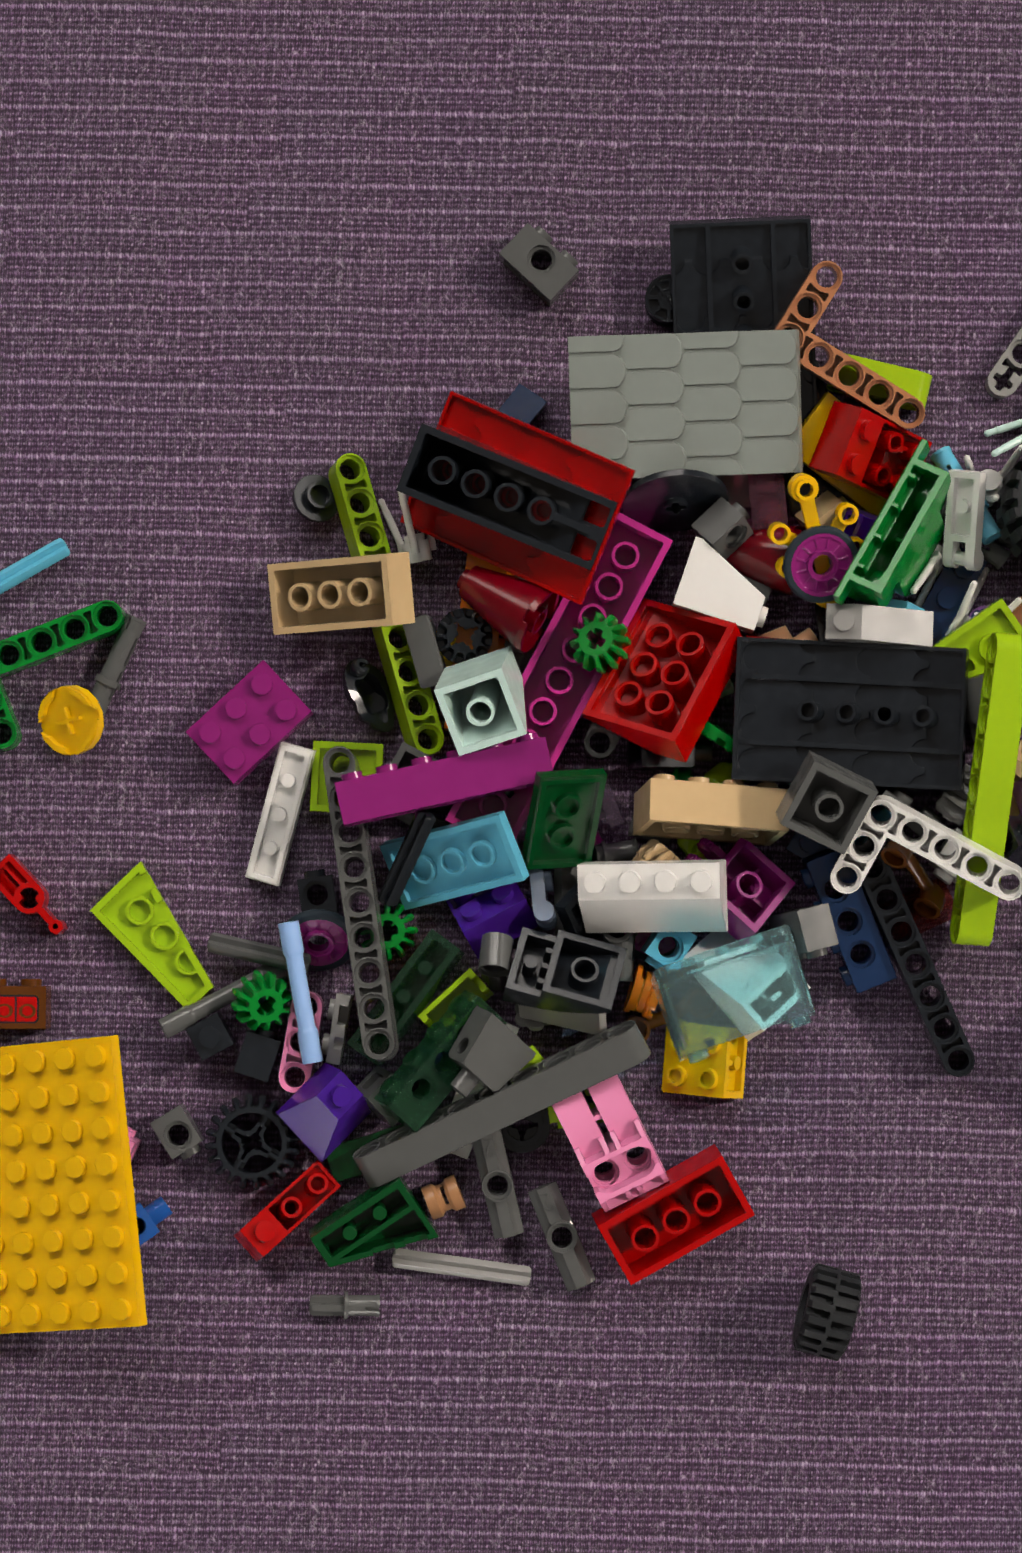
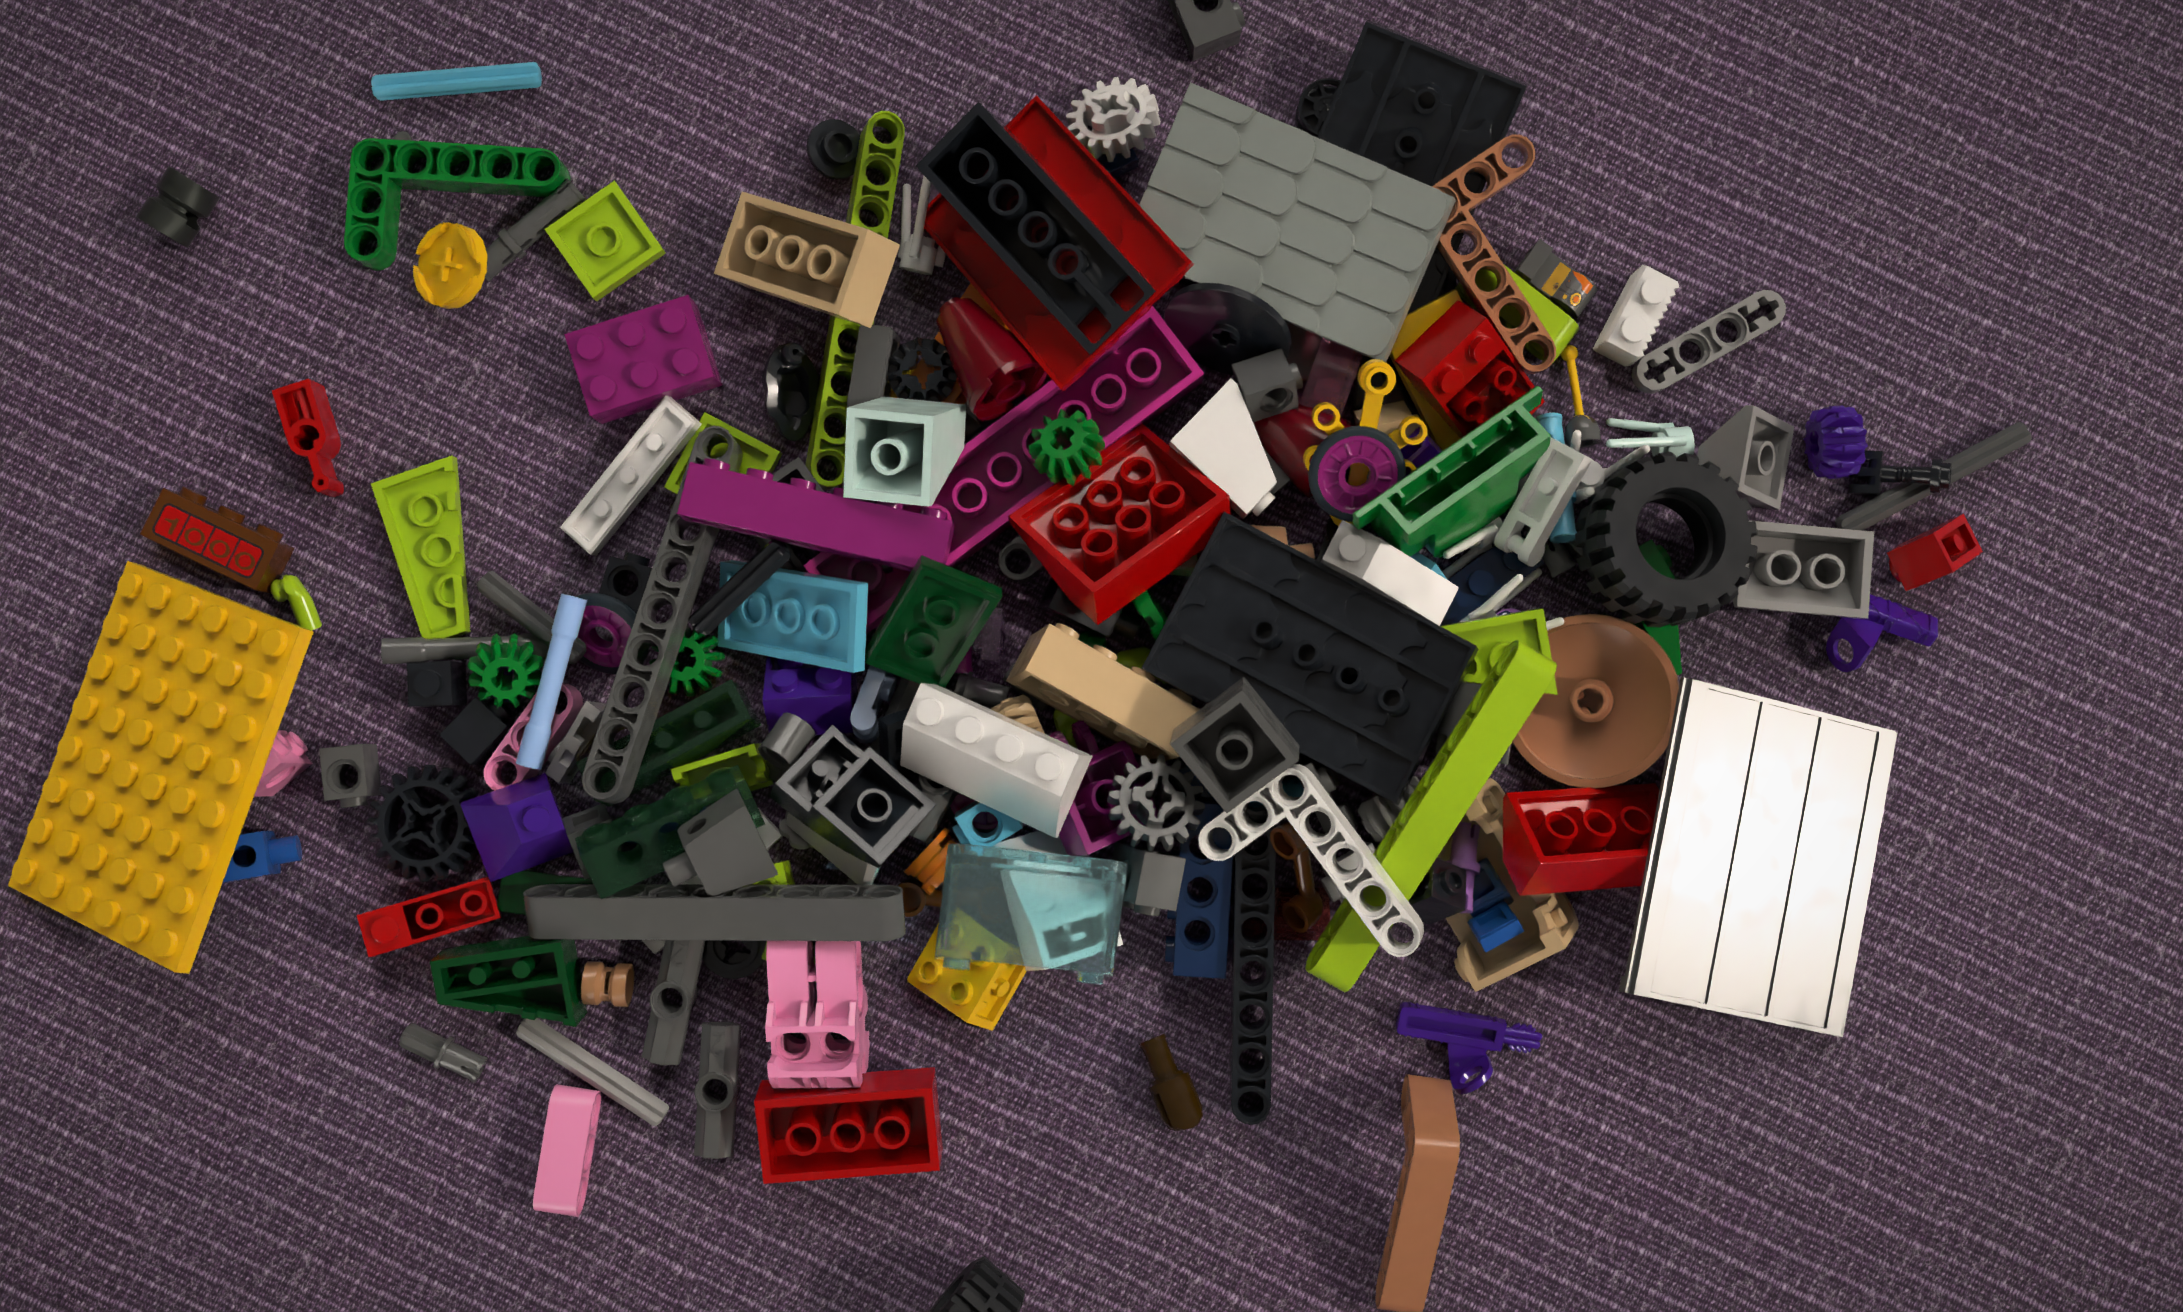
camera: 30 degrees right, 0 degrees up
(77, 1021) = (300, 601): none -> lime arm
(176, 647) = (605, 241): none -> lime plate
(471, 1333) = (567, 1150): none -> bright pink beam
(514, 380) = (1114, 119): none -> white gear
(799, 865) = (1138, 802): none -> dark grey gear
(894, 1077) = (1172, 1088): none -> dark brown arm
(897, 348) = (1556, 279): none -> dark grey leg
(966, 446) = (1586, 424): none -> hinge
(969, 347) = (1636, 316): none -> white brick

